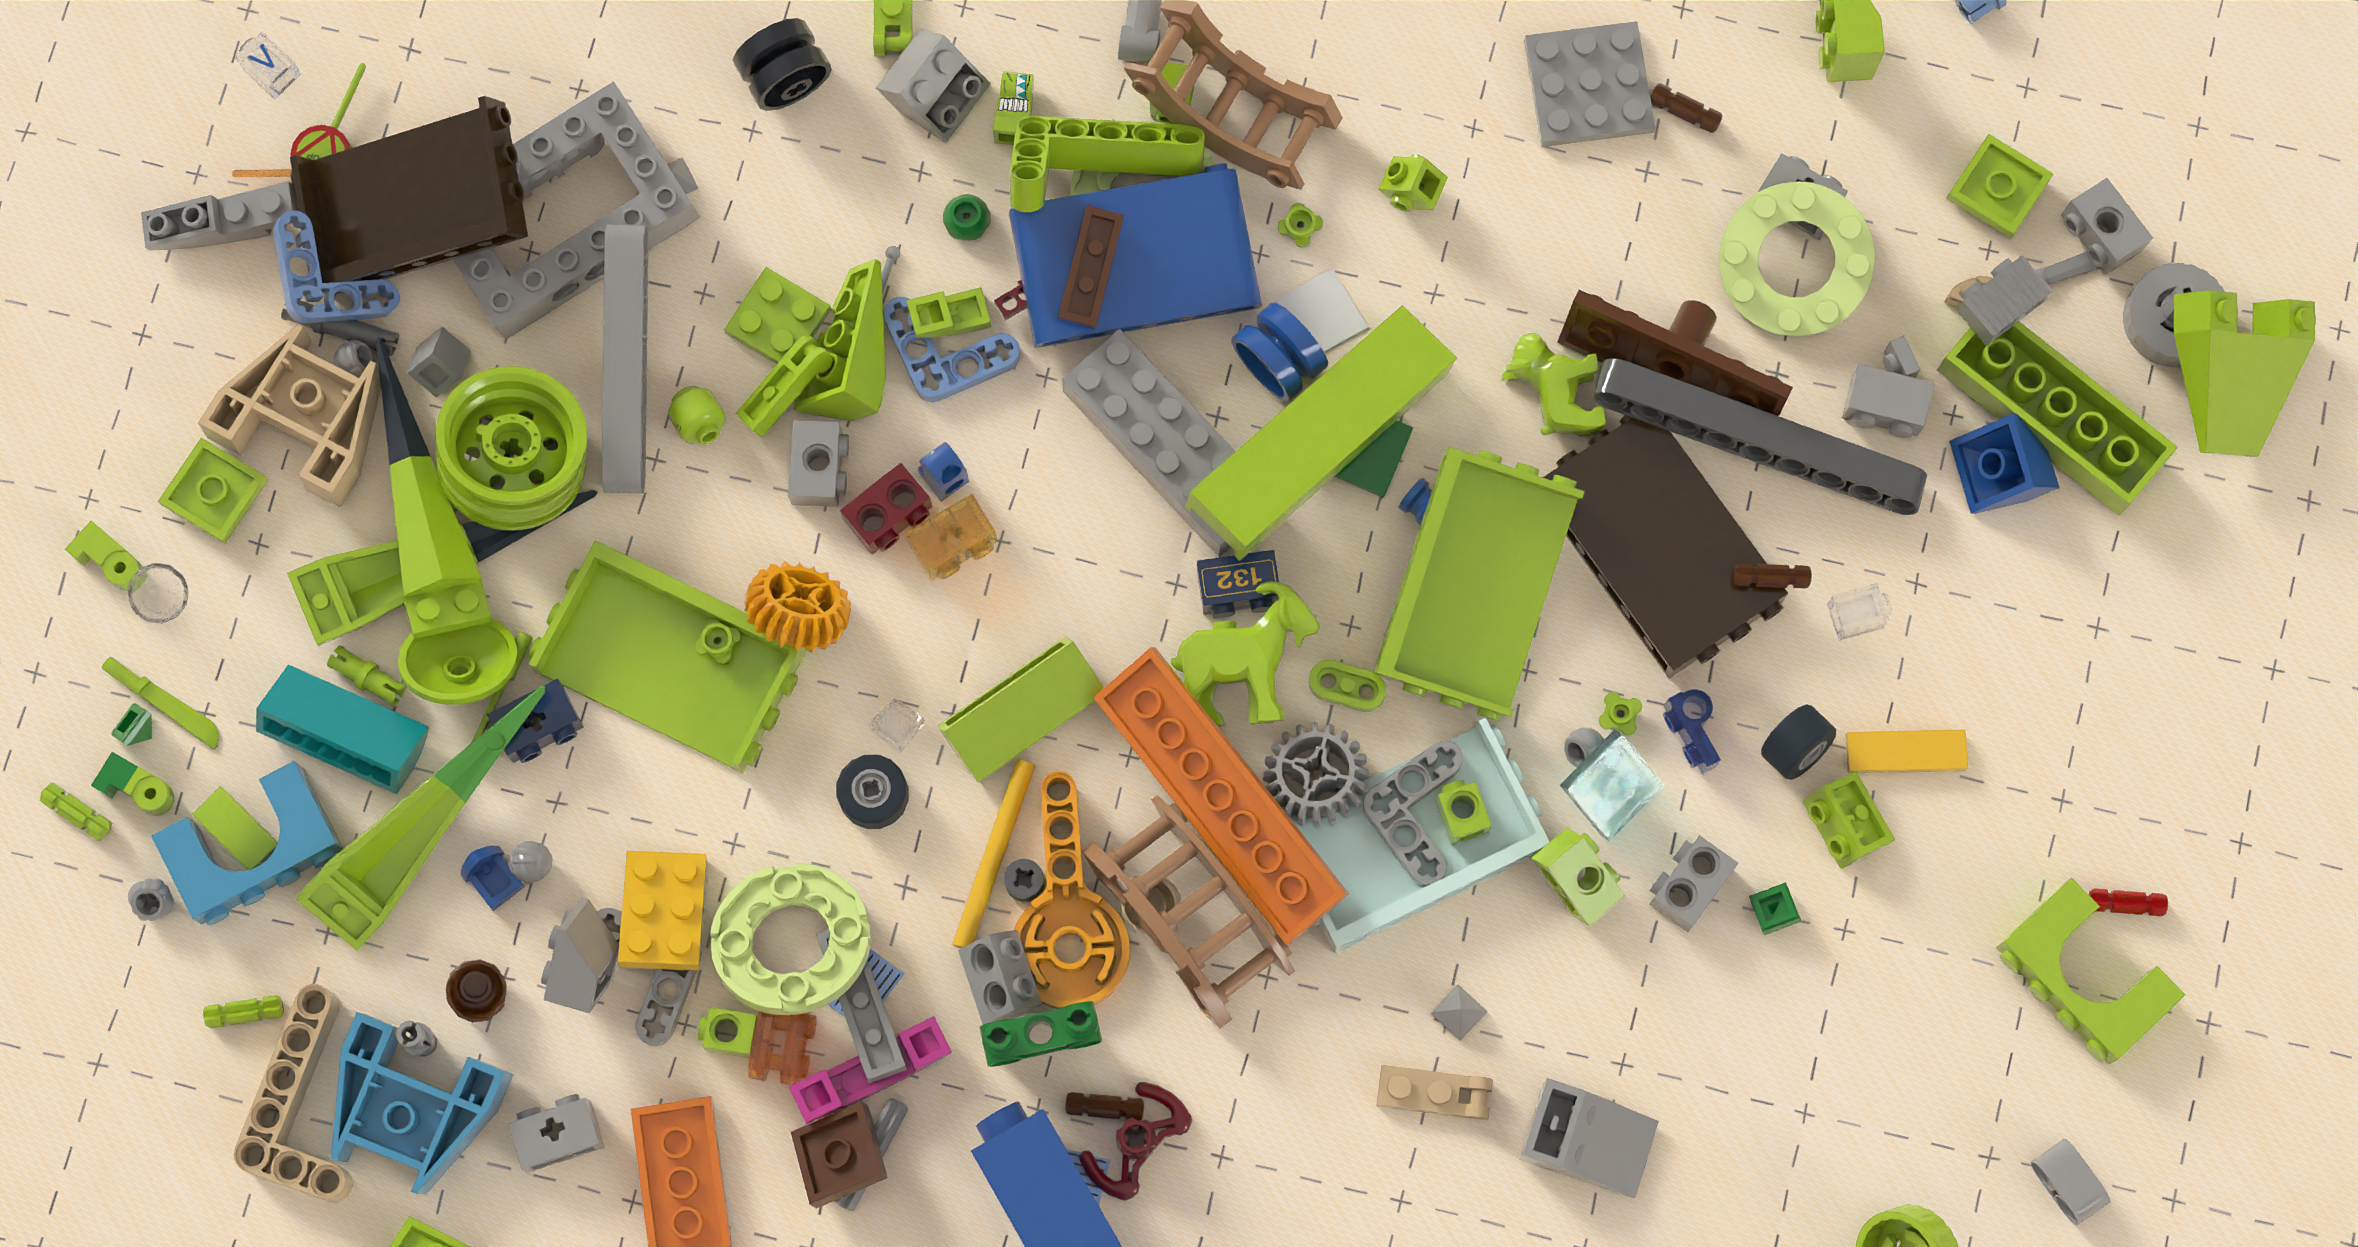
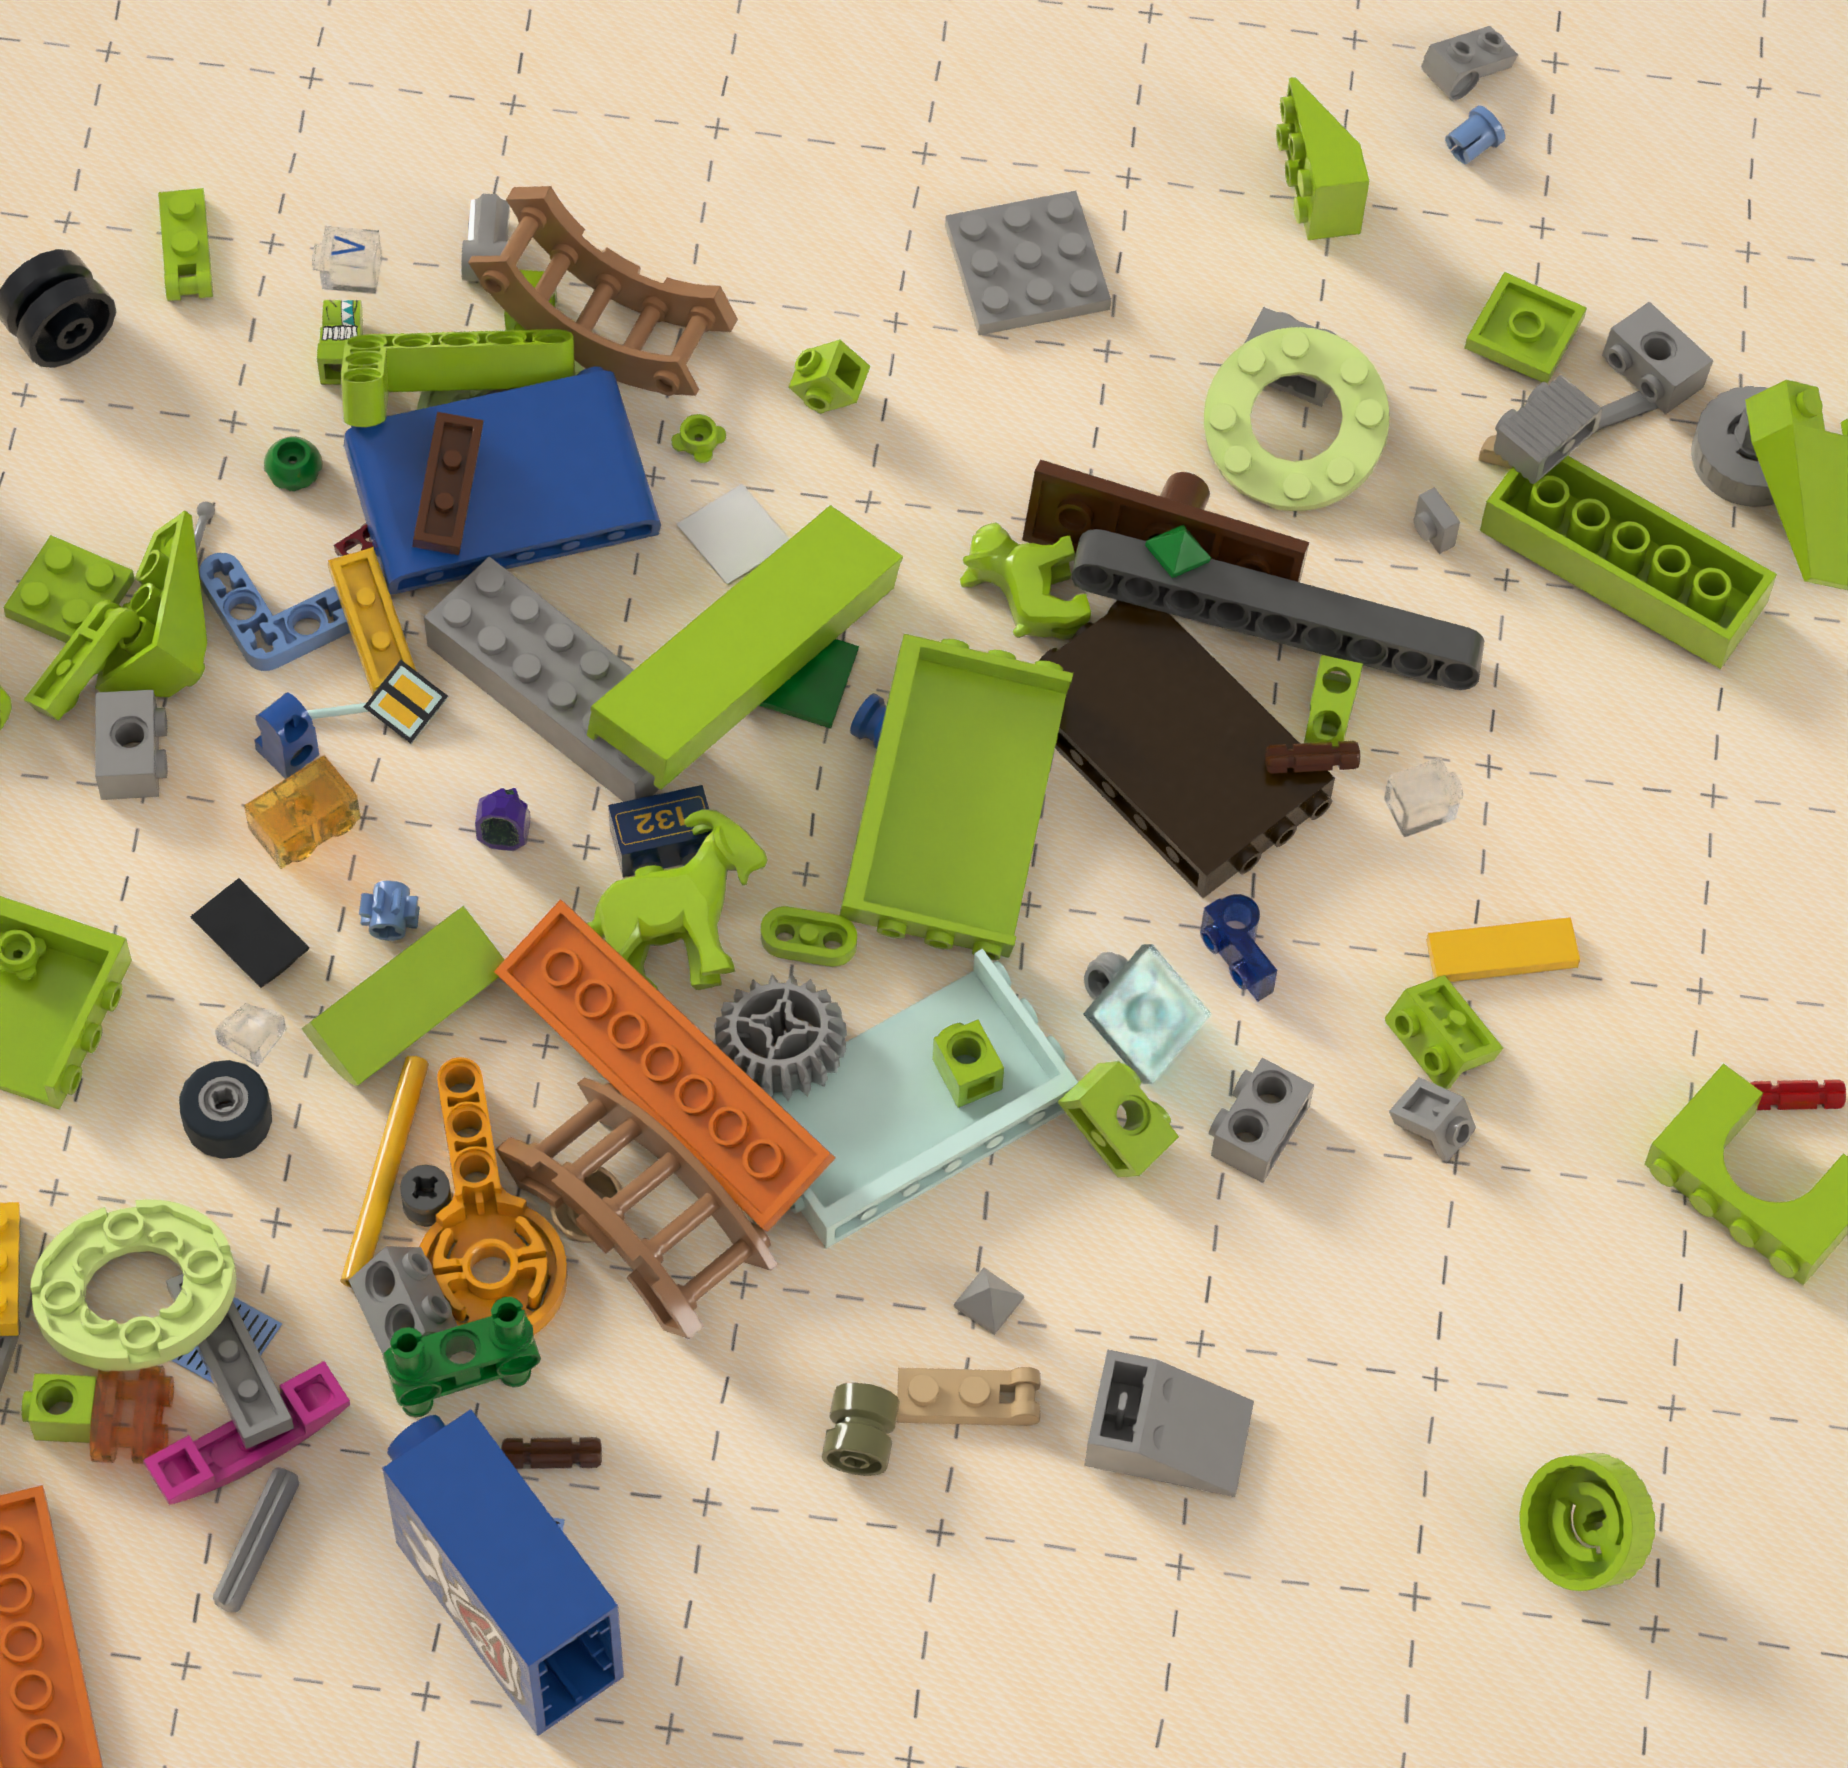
camera: 10 degrees left, 15 degrees down
(797, 606) = (115, 899): light orange gear -> none
(839, 1155) = (214, 1537): reddish brown plate -> none
(879, 501) = (210, 780): dark red brick -> none
(902, 639) = (250, 933): none -> black piece
(933, 84) = (241, 321): light grey slope -> none
(949, 315) = (283, 569): lime slope -> none
(1014, 632) = (389, 910): none -> medium blue gear
(1020, 371) = (370, 614): none -> yellow tile
(1025, 33) = (348, 259): none -> clear brick
(1038, 445) = (401, 702): none -> piece
(1111, 559) = (502, 820): none -> dark purple rock
(1138, 1141) = (600, 1480): dark red piece -> none
(1279, 352) = (685, 564): blue wheel -> none
(1347, 1116) = (862, 1422): none -> olive wheel
(1400, 816) = (889, 1074): light grey beam -> none
(1623, 724) = (1140, 927): lime plate -> none
(1683, 385) = (1177, 551): none -> green slope
(1686, 108) = (1145, 277): reddish brown axle -> none
(1775, 908) = (1366, 1141): green tile -> none
(1794, 520) = (1332, 700): none -> lime leg
(1798, 742) = (1369, 944): black wheel -> none
(1832, 893) = (1435, 1116): none -> light grey bracket
(1888, 401) = (1426, 564): light grey brick -> none
(2002, 465) = (1573, 621): blue slope -> none
(2070, 1181) = (1776, 1420): light grey beam -> none

